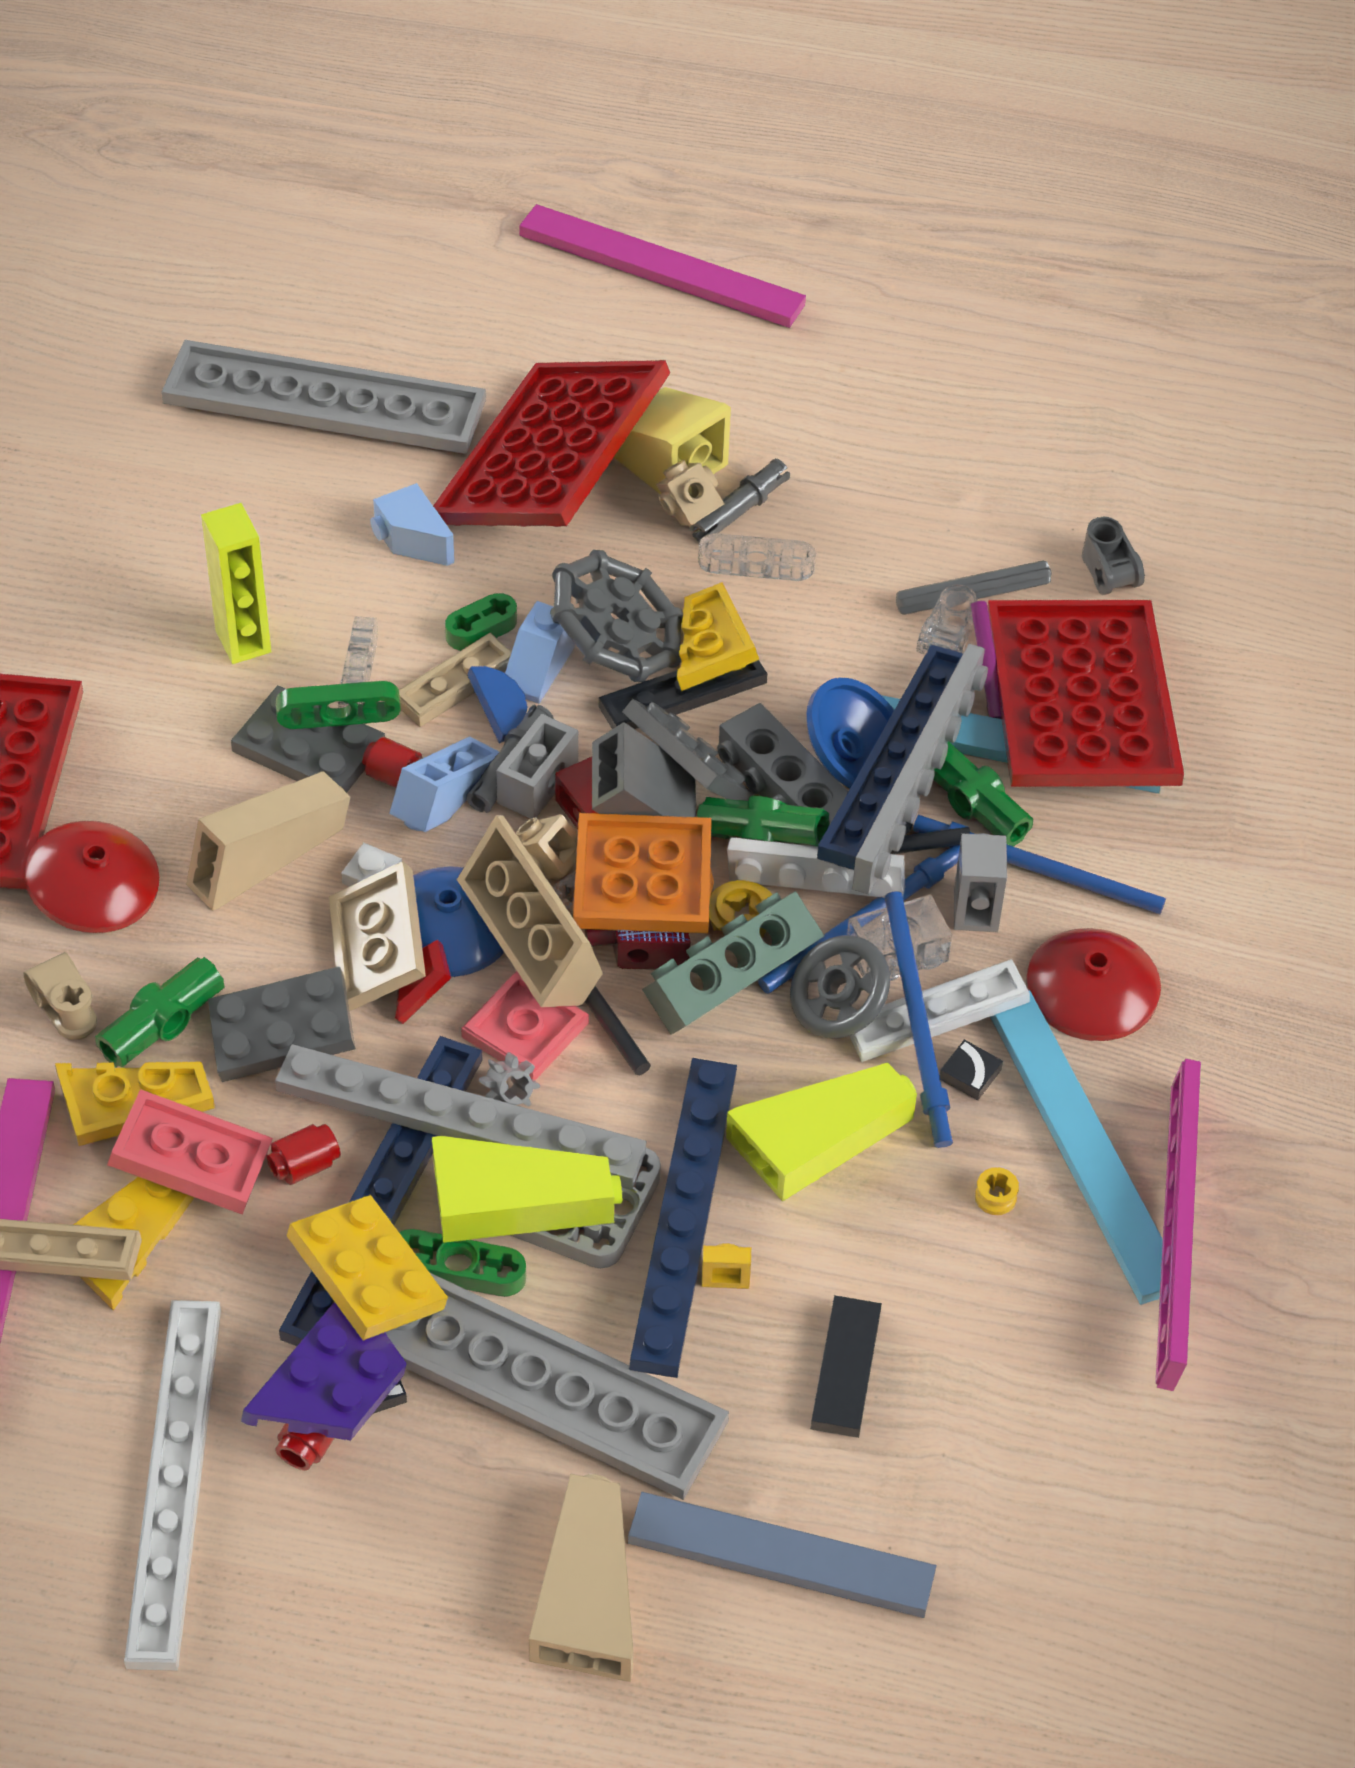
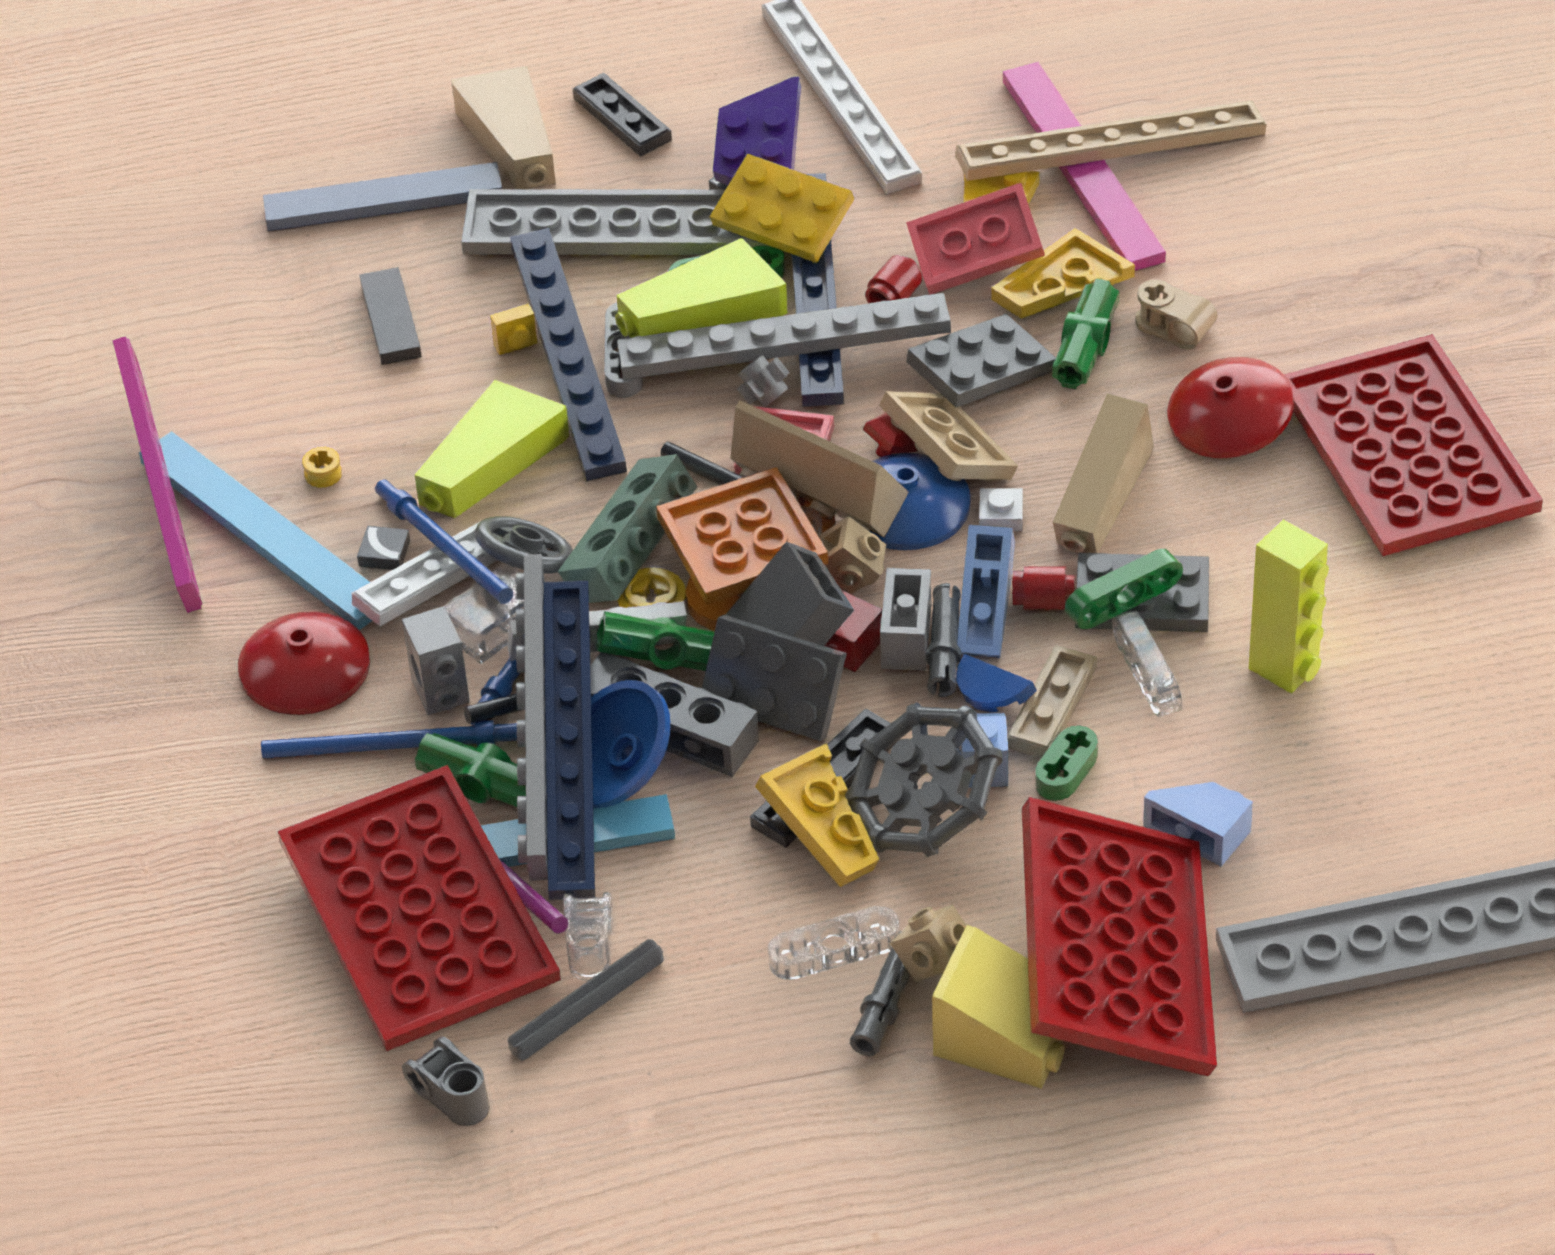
camera: 160 degrees right, 5 degrees down
(441, 1564) = (622, 114): none -> black tile

